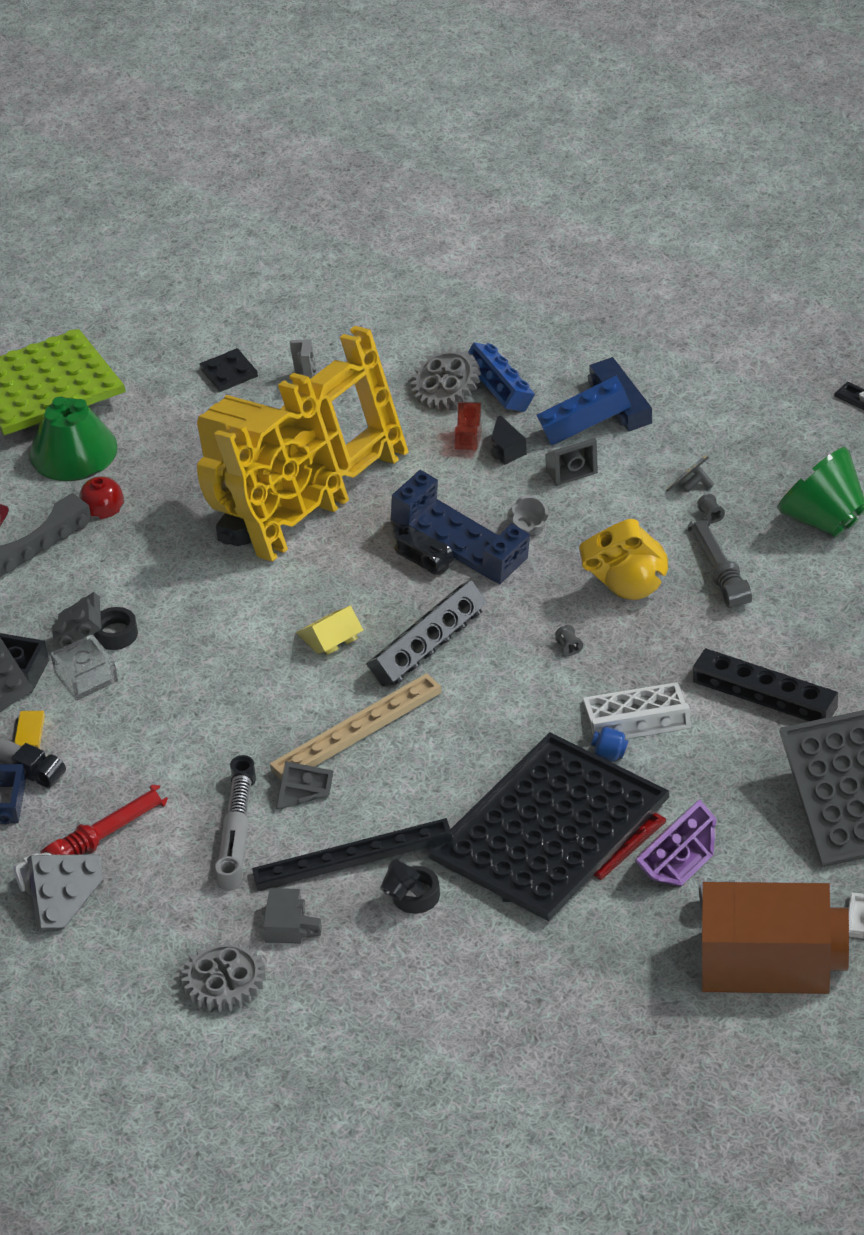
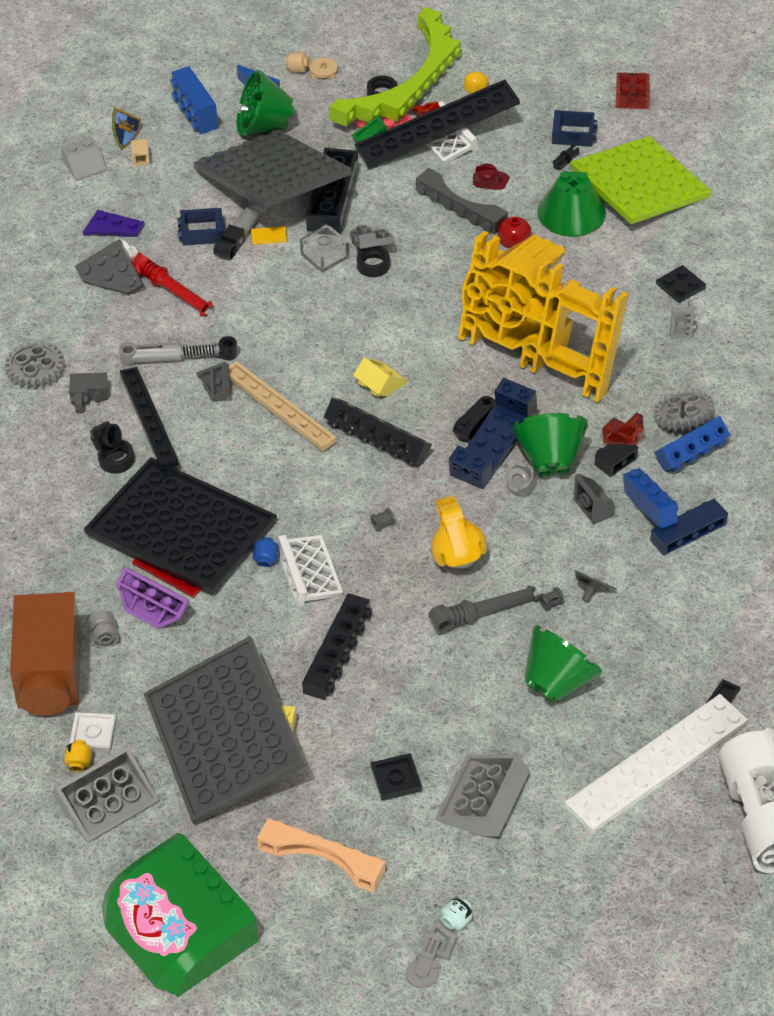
camera: 80 degrees right, 5 degrees up
(491, 476) = (551, 441): none -> green cone

